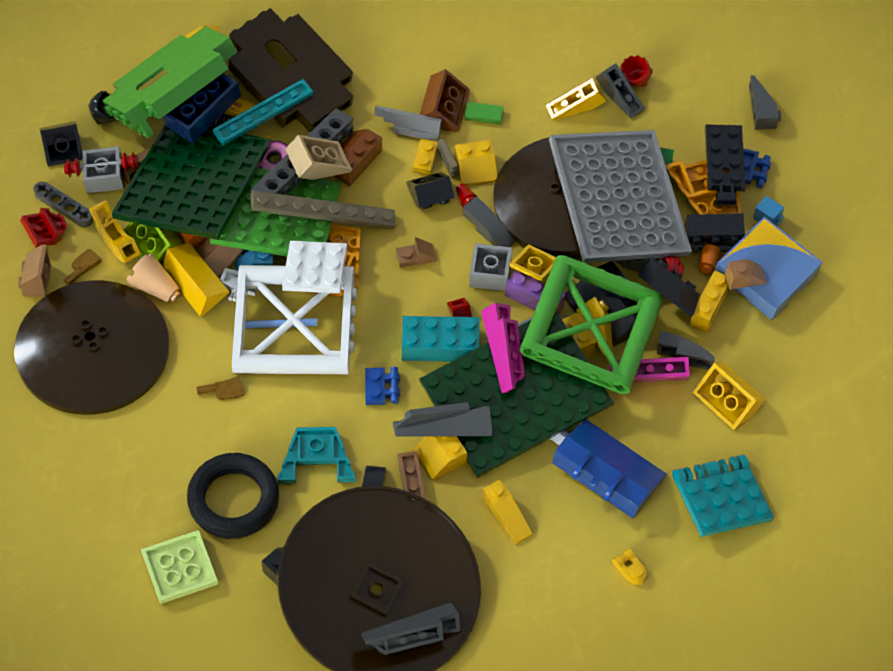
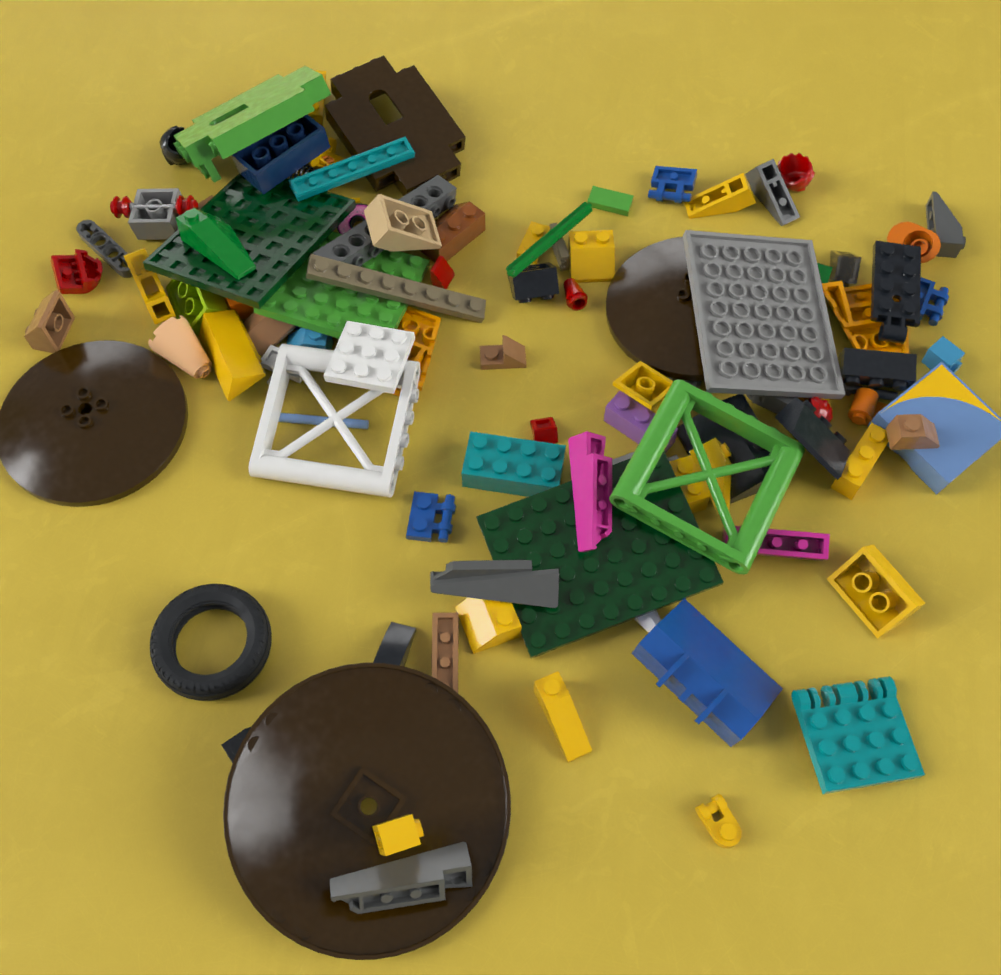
camera: 10 degrees right, 5 degrees up
(61, 143) = (120, 178): black slope -> none
(82, 264) = (108, 321): pearl gold piece -> none
(168, 189) = (215, 241): none -> green wedge
(179, 567) = (119, 733): yellowish green plate -> none
(225, 389) = (236, 496): pearl gold piece -> none
(315, 447) = (332, 589): teal wing -> none
(353, 192) = (441, 273): none -> red slope
(404, 593) = (398, 834): none -> yellow brick
(411, 123) = (523, 202): light grey piece -> none
(440, 153) = (548, 239): none -> green axle
(445, 100) = (565, 181): dark orange slope -> none
(487, 223) = (595, 330): dark grey slope -> none
(490, 267) = (589, 383): light grey brick -> none
(534, 88) = (672, 178): none -> blue plate
(678, 346) = (823, 520): dark grey slope -> none
(684, 147) = (845, 267): none -> clear smoke slope
(738, 115) = (916, 235): none -> orange piece

